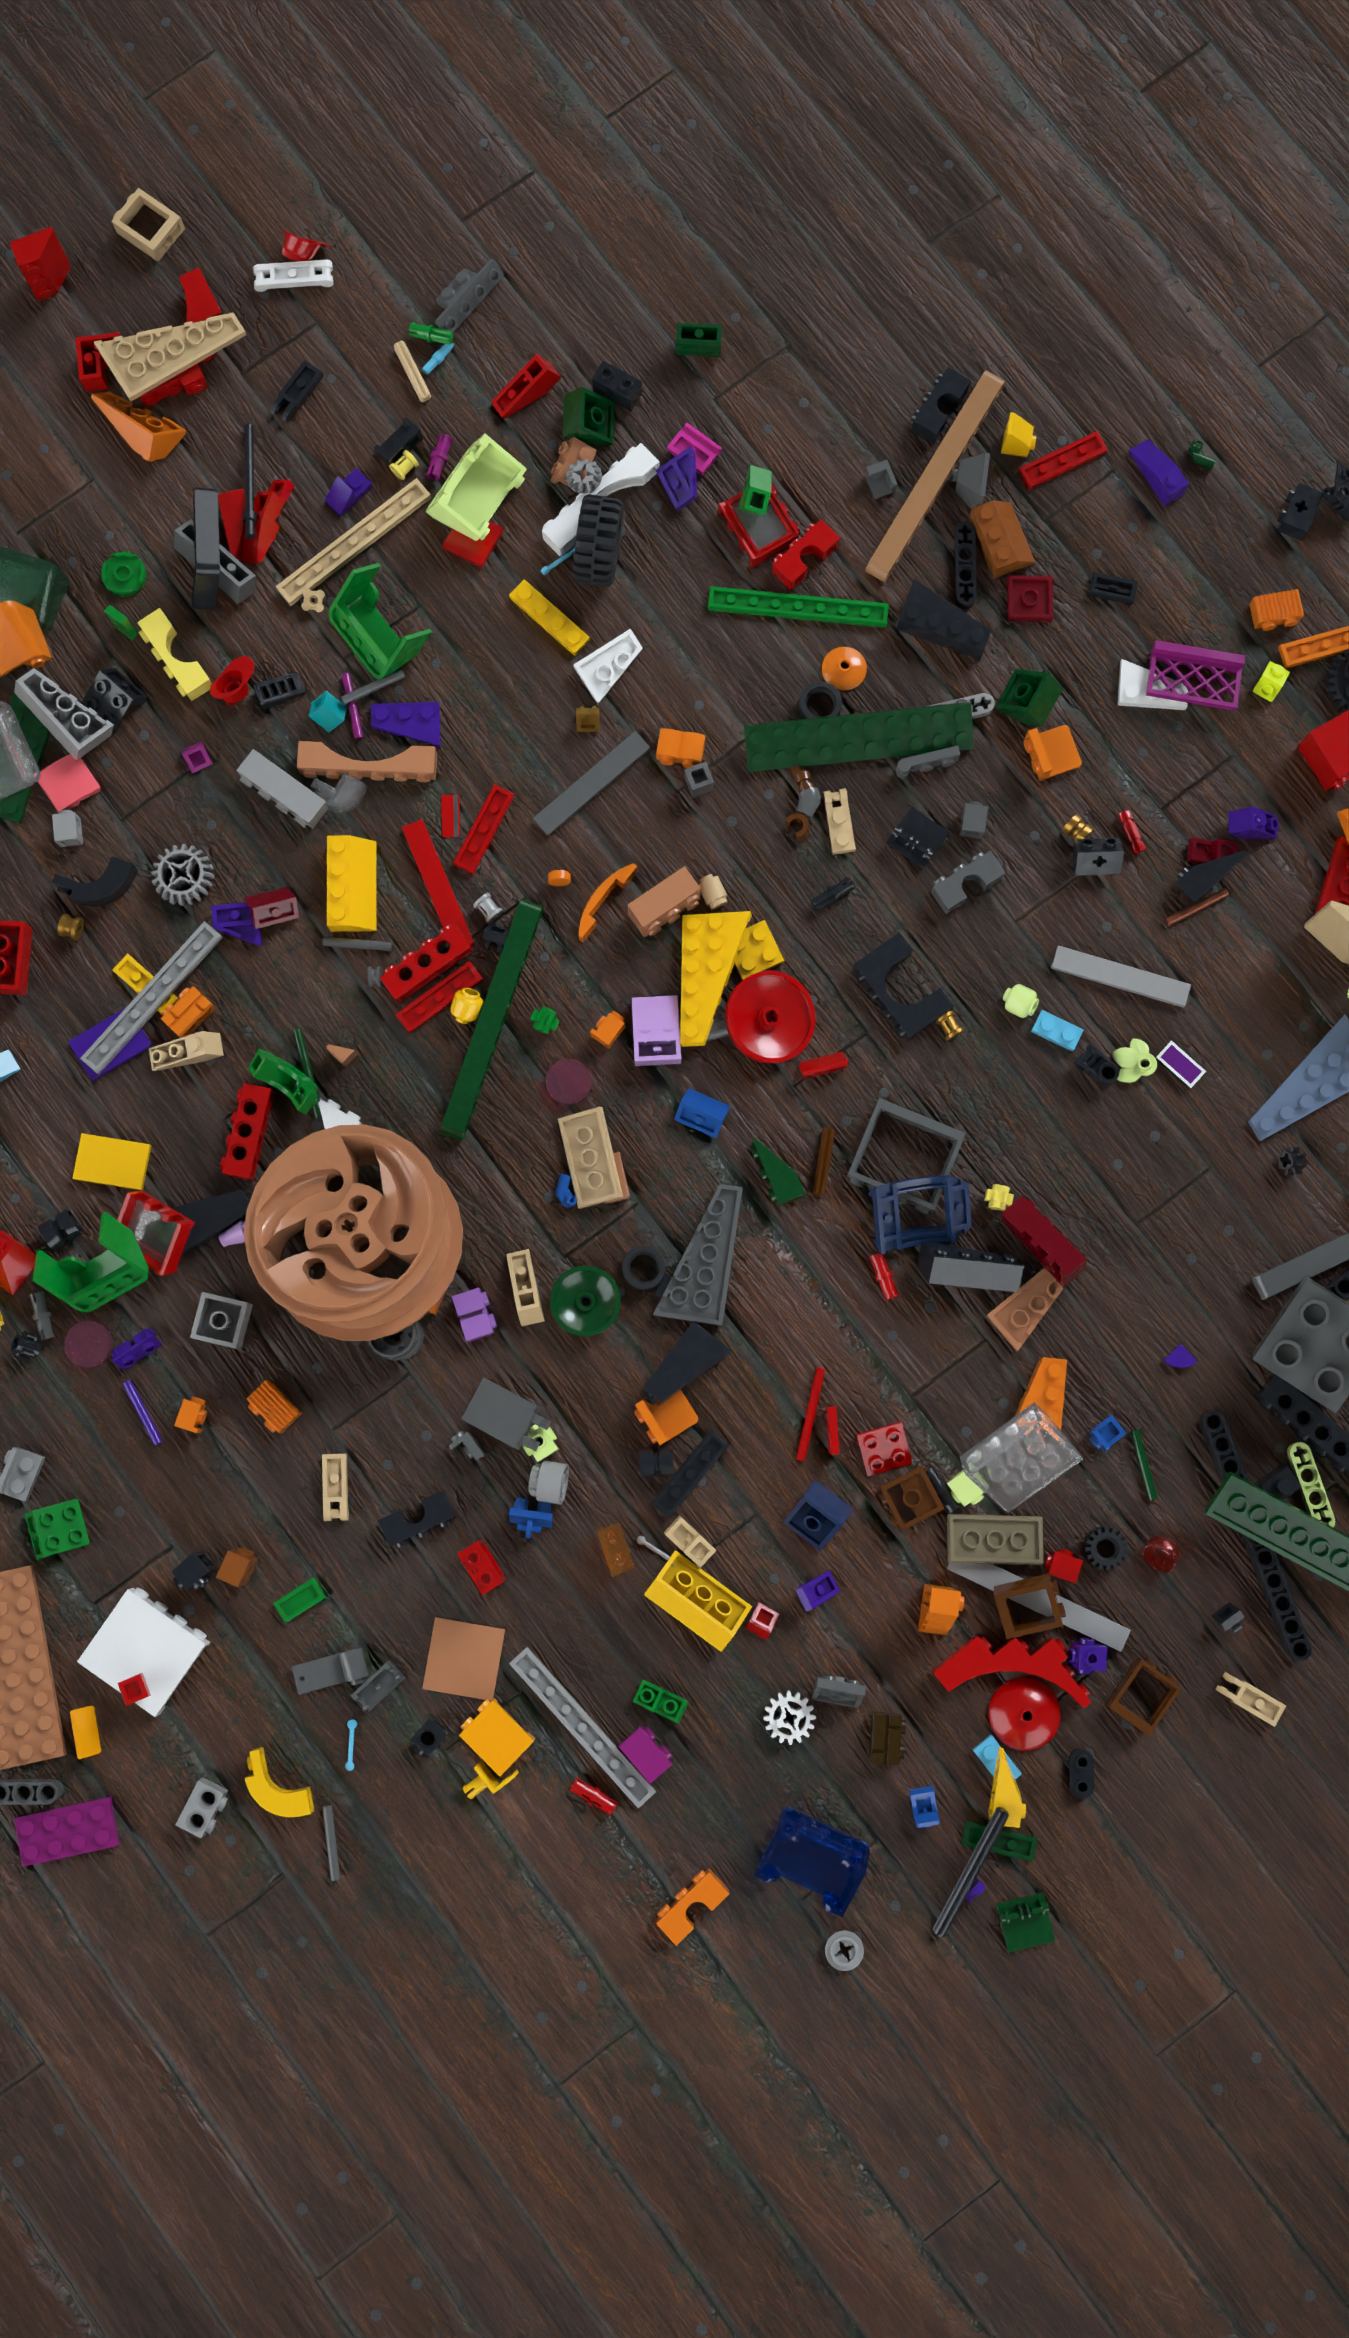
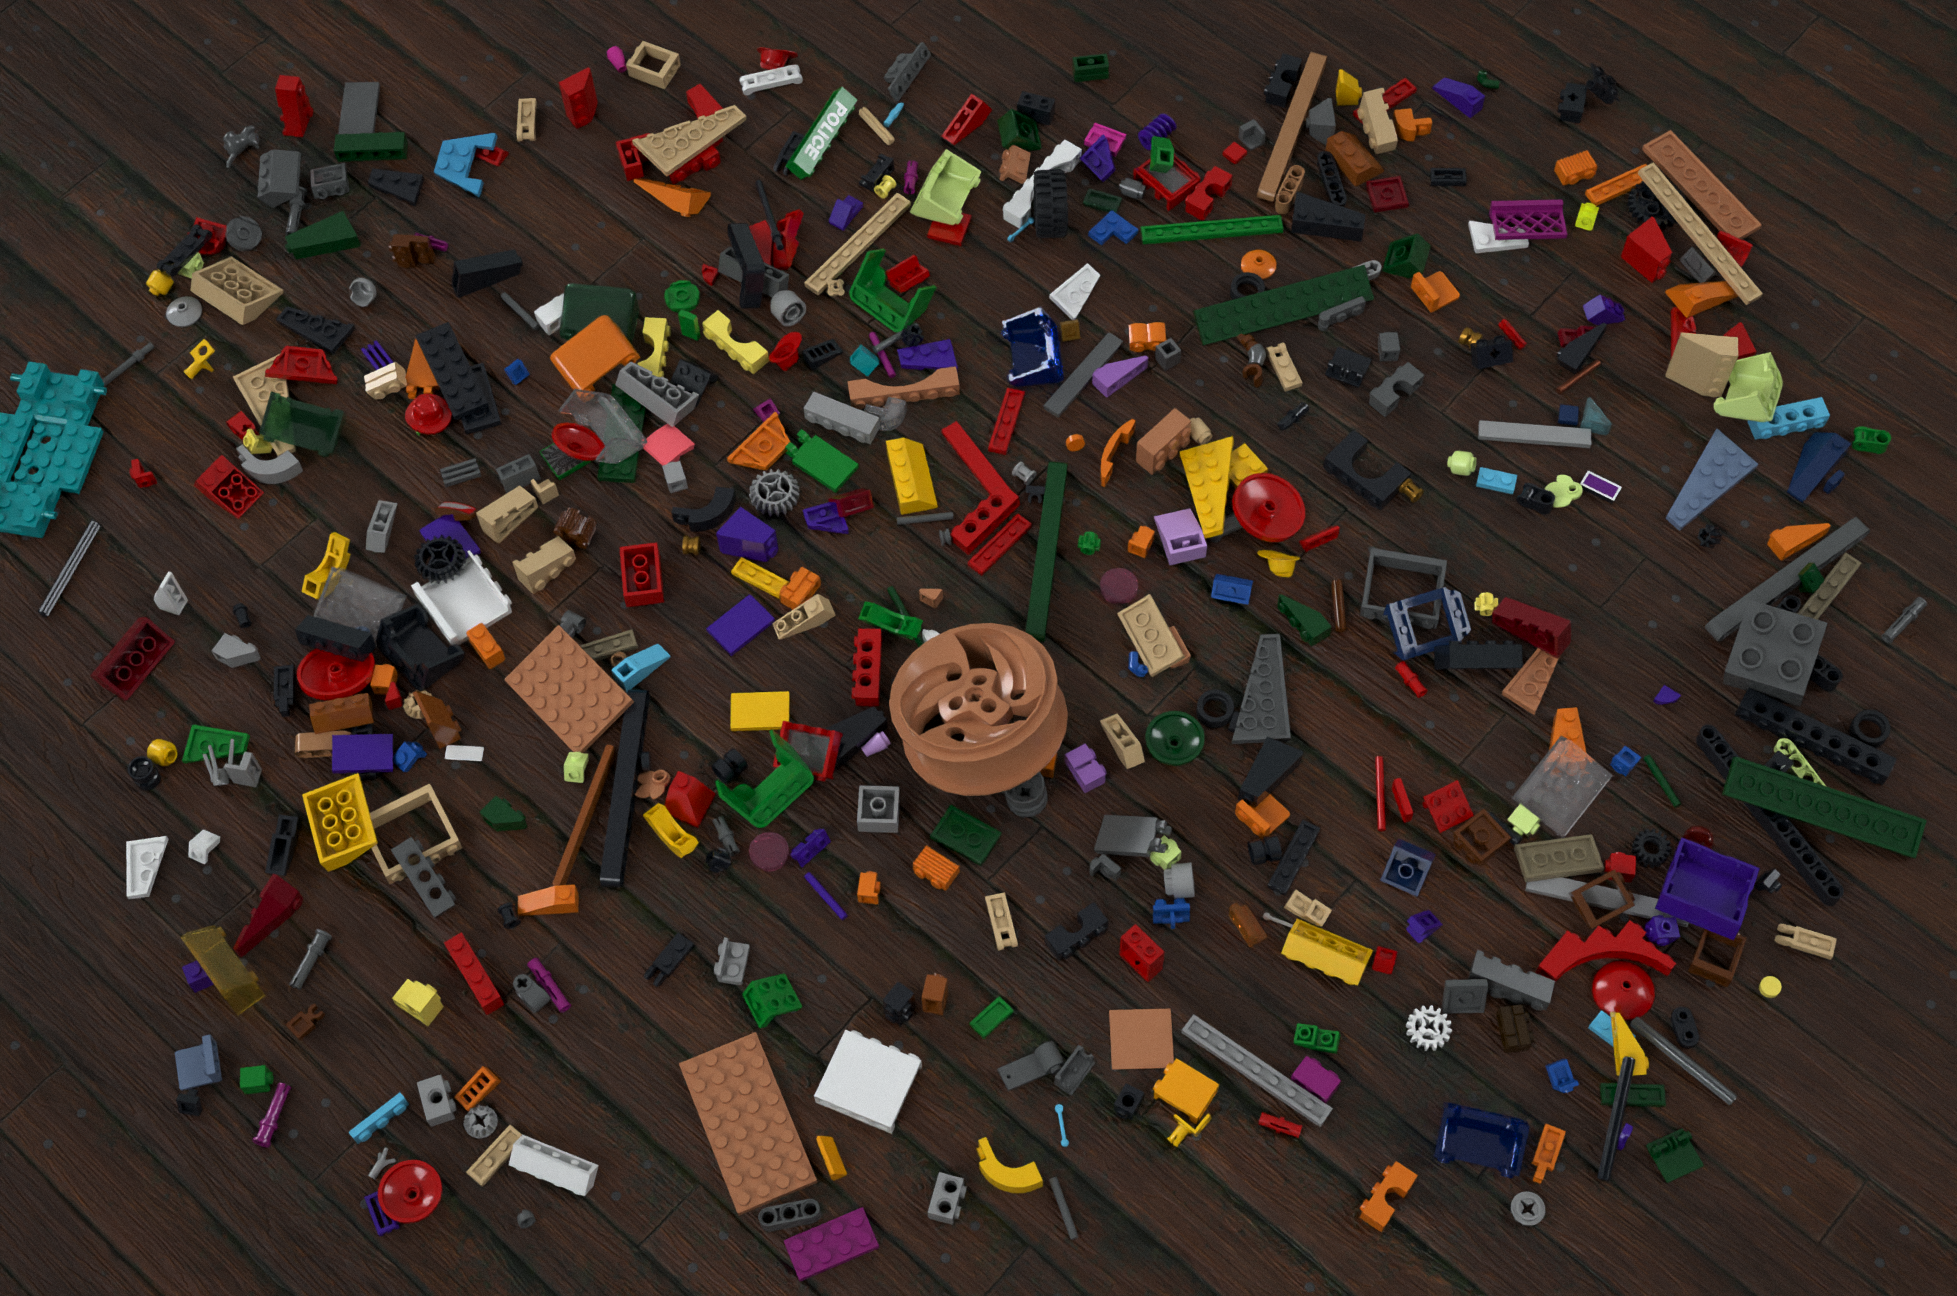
camera: 10 degrees left, 20 degrees down
(82, 623) = (656, 333): none -> light yellow arch
(104, 205) = (616, 57): none -> dark pink cone
(134, 1689) = (870, 1102): red tile -> none
(135, 932) = (747, 537): none -> dark purple slope
(151, 998) = (767, 584): light grey tile -> none
(163, 548) = (709, 274): none -> red tile
(183, 806) = (762, 446): none -> orange wing
(246, 620) = (787, 307): none -> light grey piece
(249, 842) = (821, 461): none -> green tile
(318, 1369) = (965, 835): none -> dark green tile
(339, 371) = (821, 133): none -> brick
(392, 690) = (912, 335): none -> black gear
(404, 599) = (907, 274): none -> red bracket
(431, 333) = (890, 98): green axle -> none
(450, 815) = (977, 417): red sticker -> none
(466, 1005) = (1024, 543): yellow head -> none
(538, 739) = (1033, 349): none -> clear blue windscreen
(549, 617) = (1022, 269): yellow plate -> none
(590, 482) = (1020, 170): light grey gear -> none
(629, 794) = (1117, 374): none -> medium lavender slope
(671, 538) = (1102, 201): none -> clear green tile
(675, 576) = (1113, 225): none -> blue plate
(712, 529) = (1132, 188): none -> dark grey brick
(761, 449) = (1160, 127): none -> dark purple piece
(766, 1089) = (1279, 563): none -> yellow piece
(853, 500) = (1234, 153): none -> red tile
(884, 1889) = (1547, 1151): none -> orange plate
(896, 1683) = (1512, 982): none -> dark grey wedge
(913, 561) = (1289, 189): none -> medium nougat beam
(939, 1609) = (1529, 912): orange wedge -> none
(1042, 495) = (1376, 121): none -> tan wedge
(1068, 1813) = (1683, 1060): none -> dark grey axle
(1080, 507) = (1408, 127): none -> orange brick
(1153, 1619) = (1707, 888): none -> dark purple tile
(1169, 958) = (1568, 415): none -> dark blue tile
(1193, 1745) = (1770, 987): none -> light yellow tile
(1197, 971) = (1594, 418): none -> clear light blue slope

